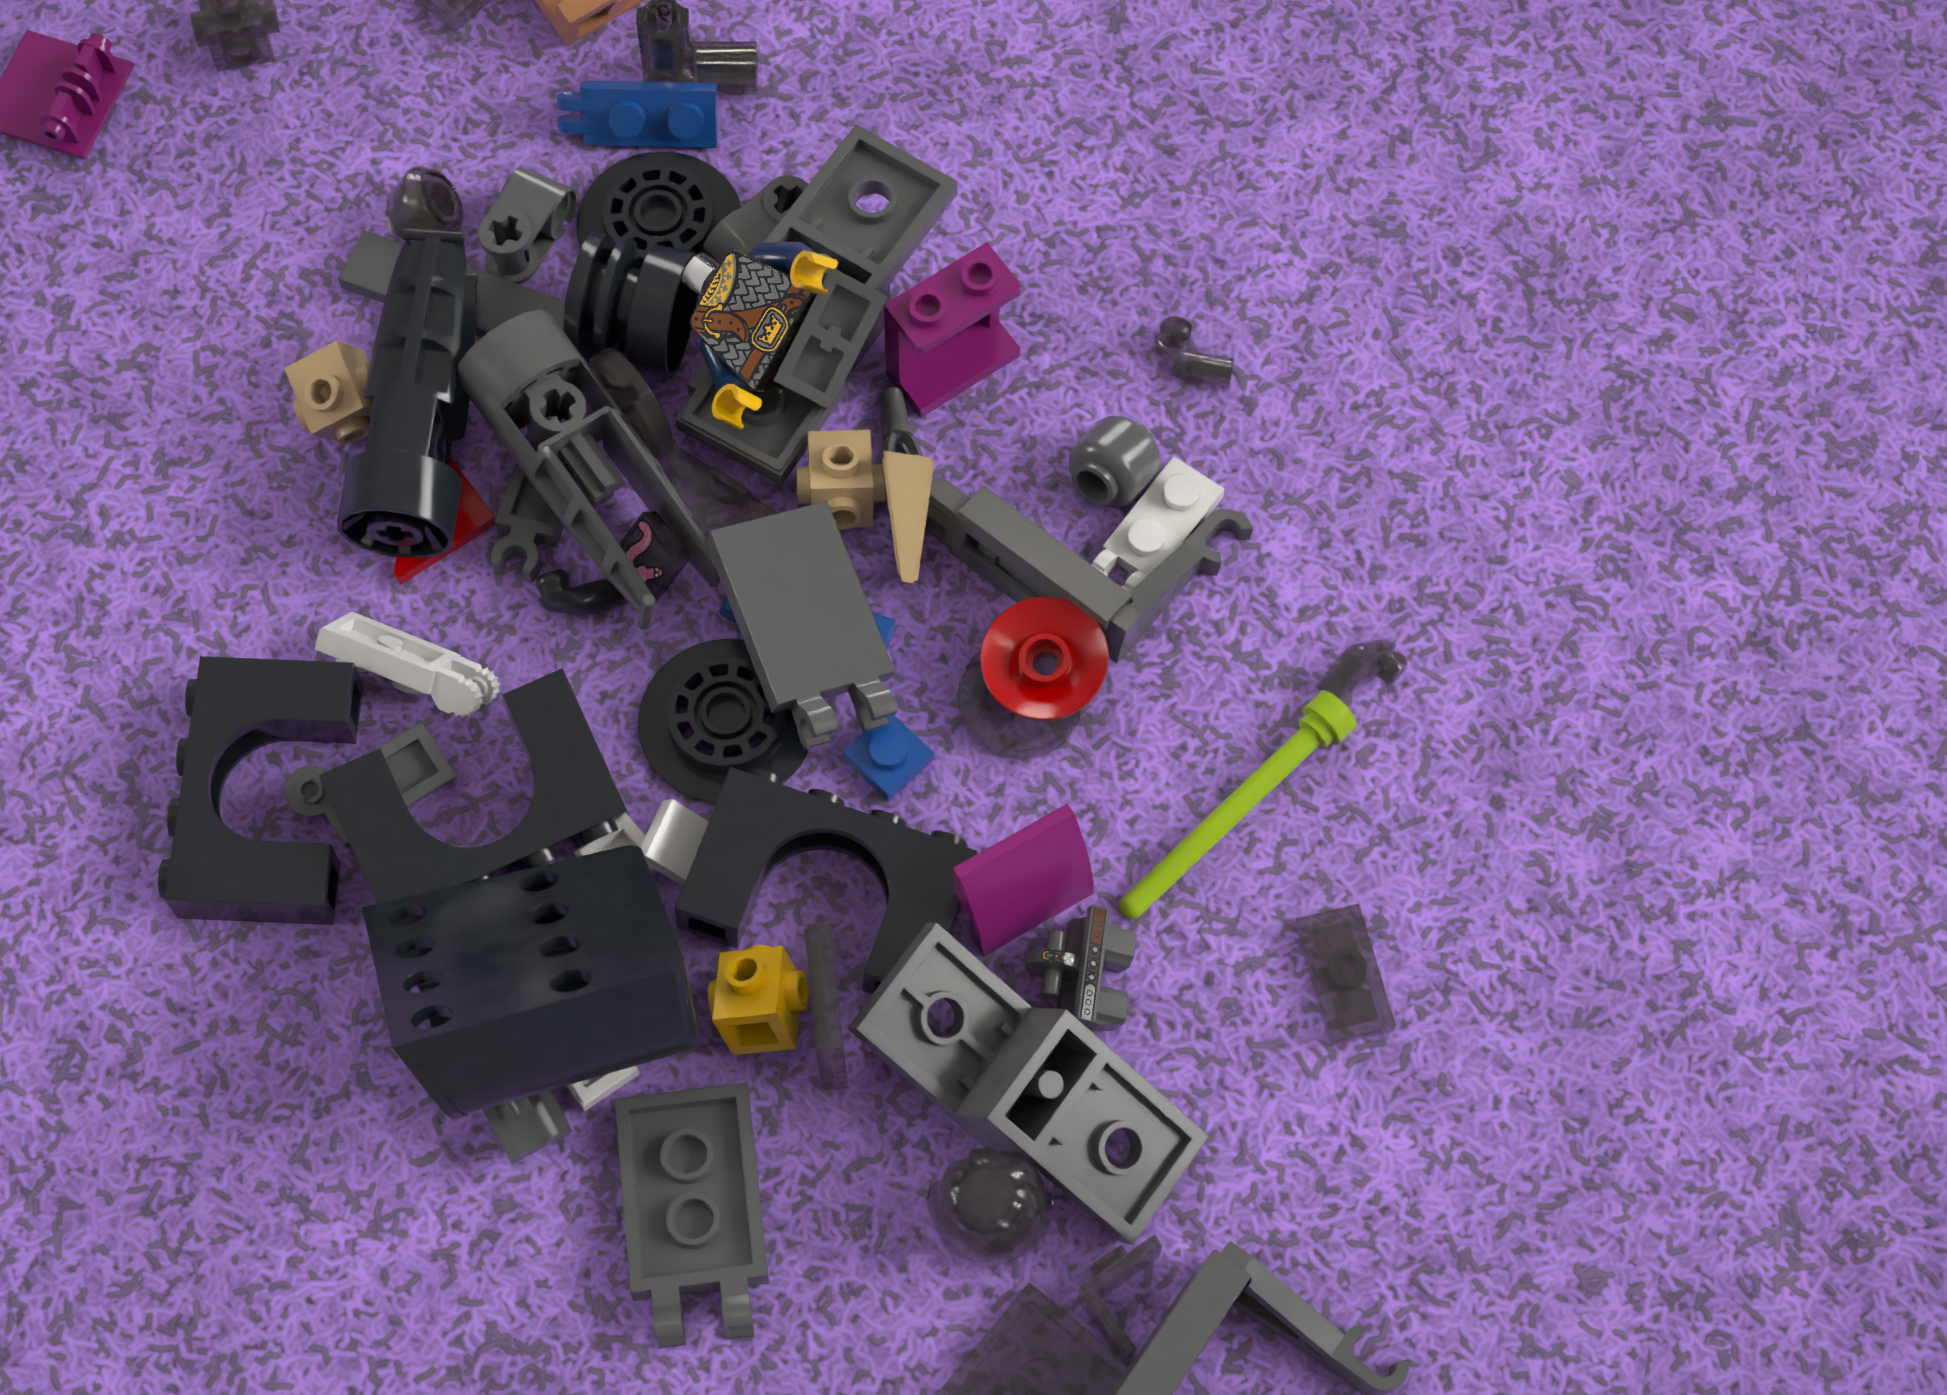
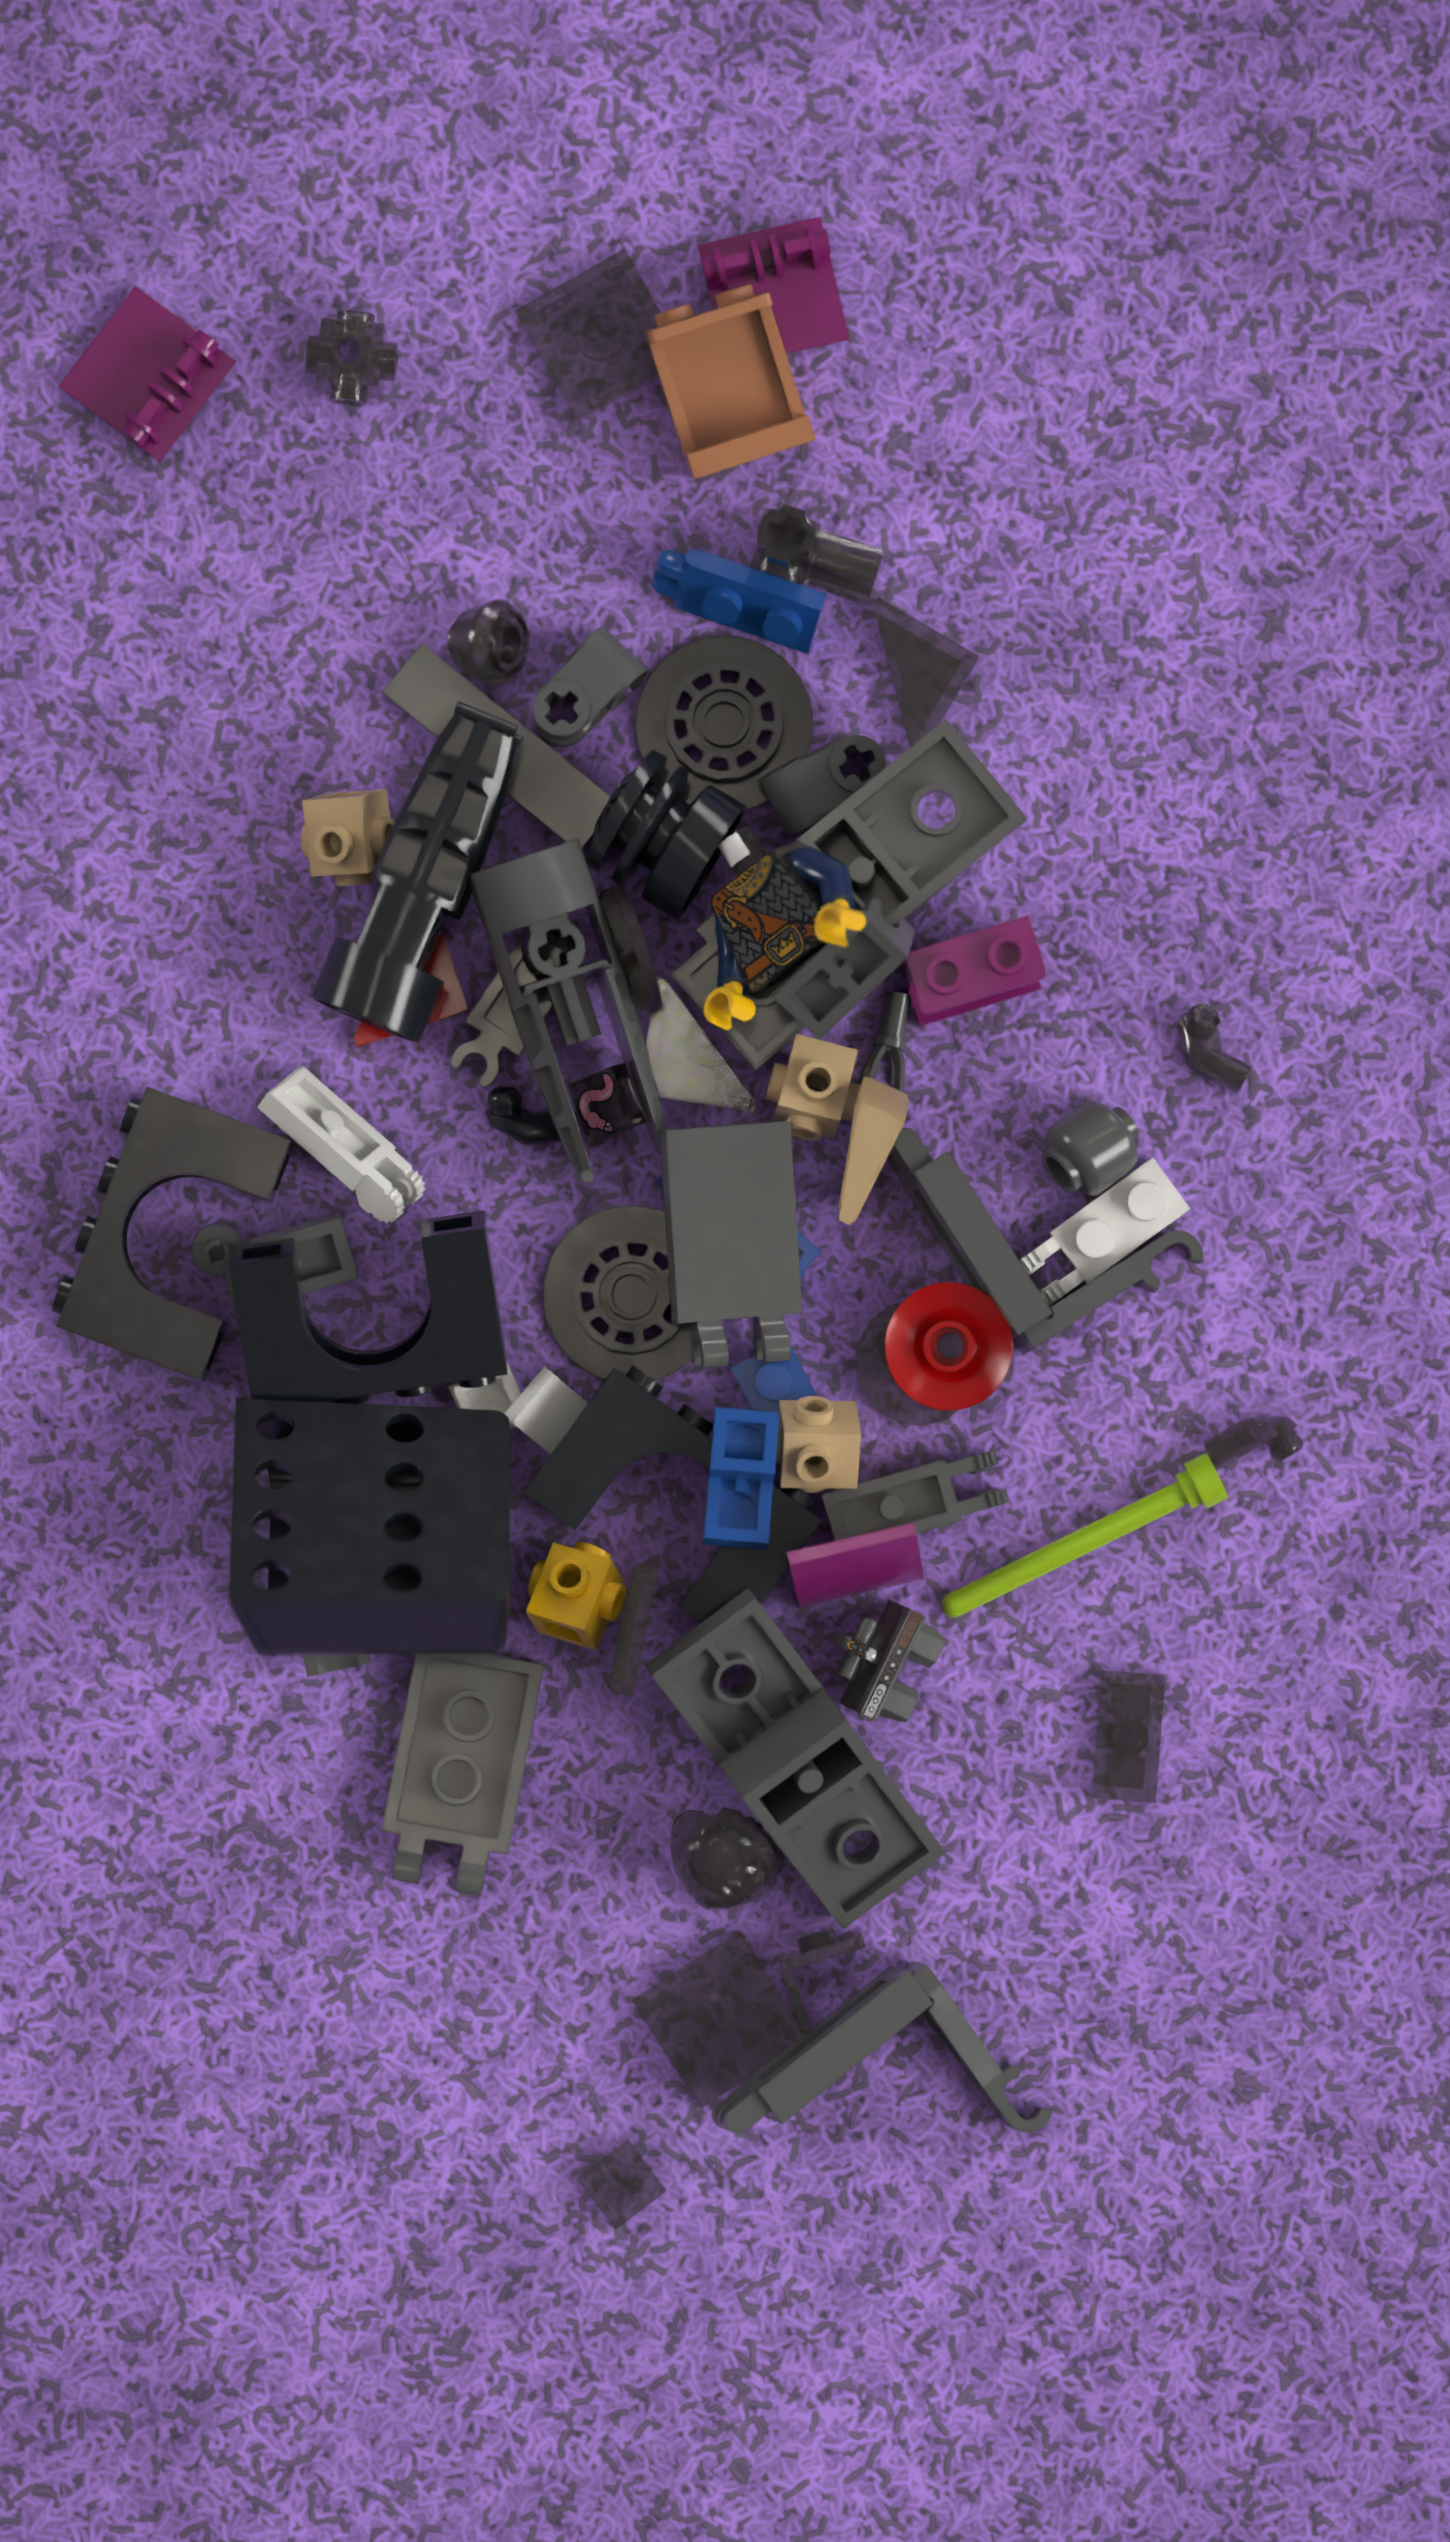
camera: 25 degrees right, 20 degrees up
(815, 120) = (923, 668): none -> clear smoke tile
(885, 829) = (741, 1478): none -> blue slope
(968, 791) = (818, 1444): none -> tan brick
(1076, 790) = (910, 1496): none -> dark grey hinge

